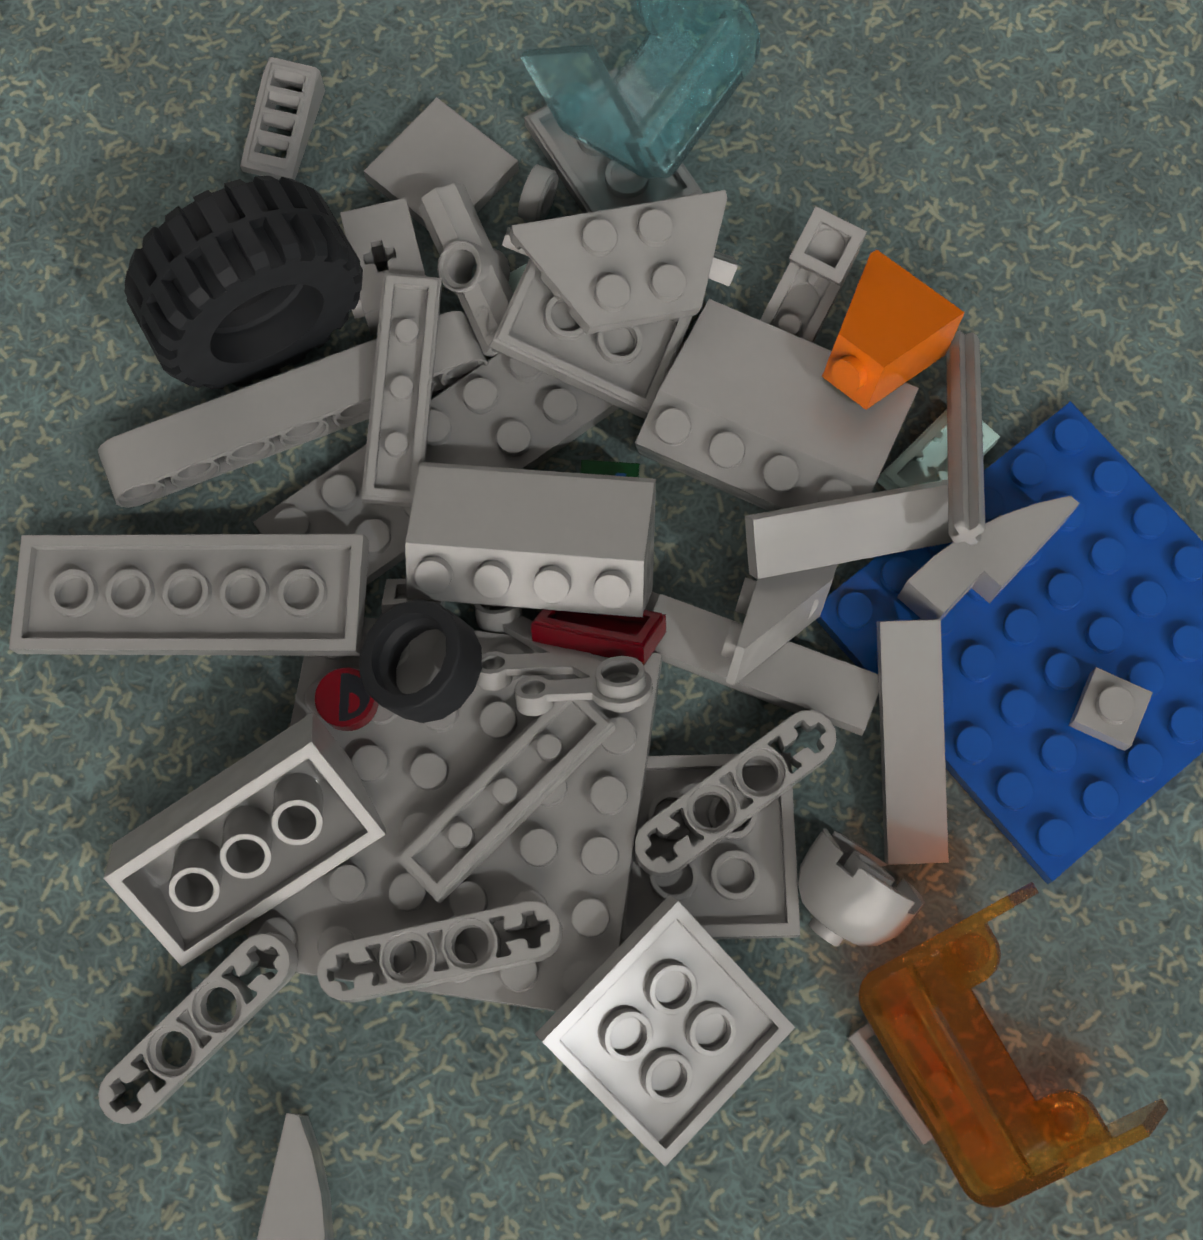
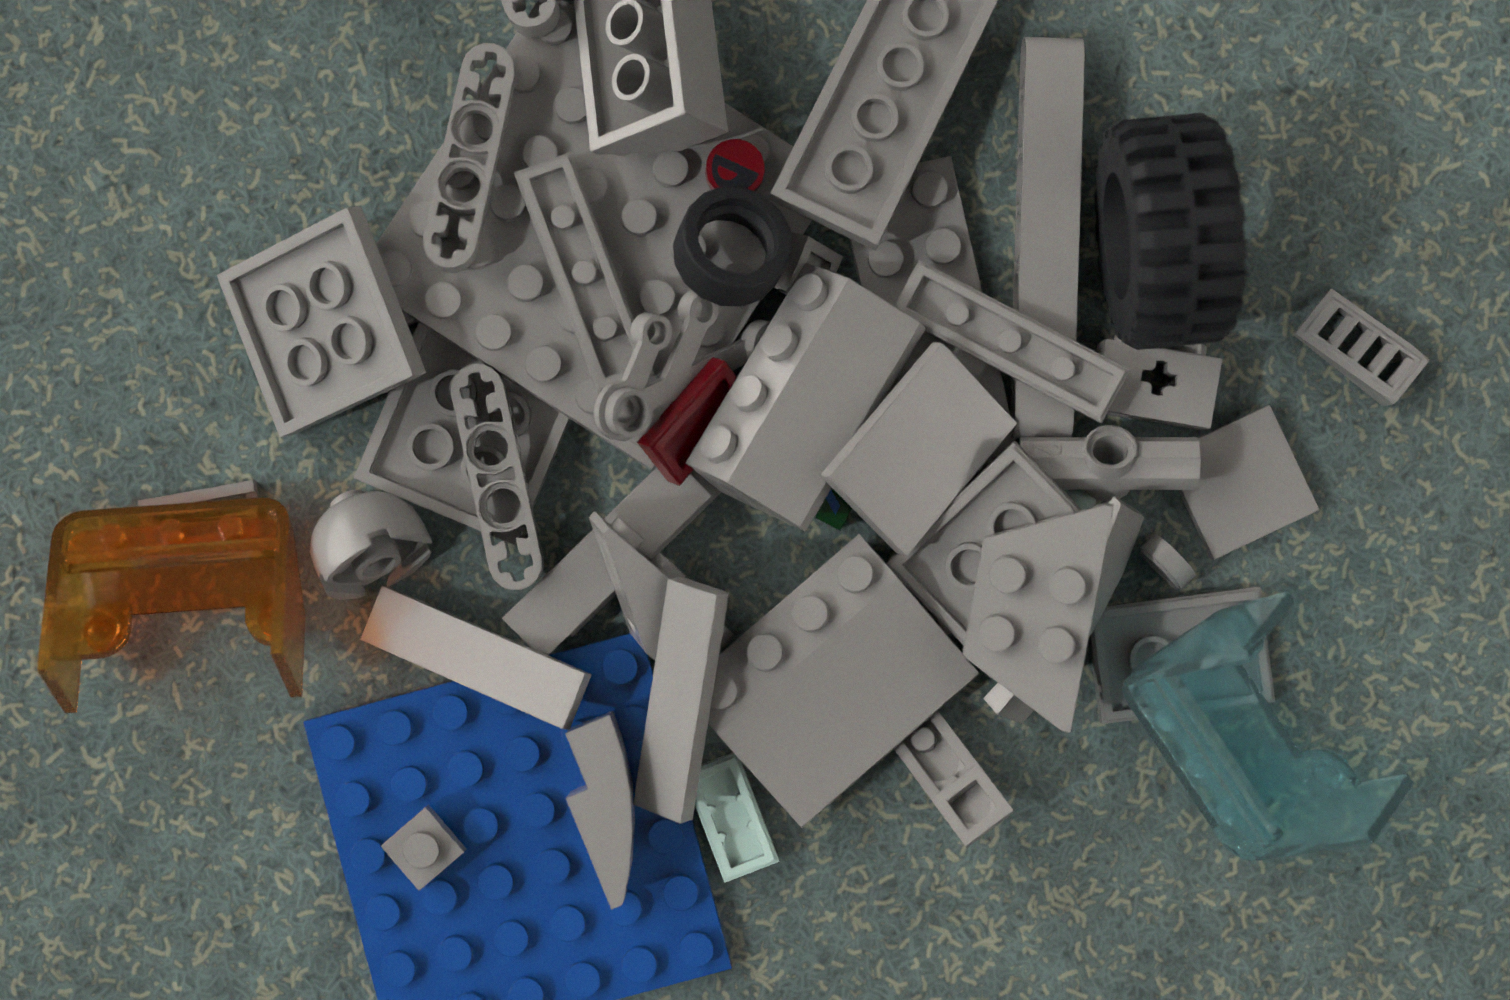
camera: 115 degrees right, 15 degrees up
(534, 419) = (919, 448): none -> light grey tile
(889, 332) = (866, 822): orange slope -> none
(965, 440) = (726, 840): light grey axle -> none

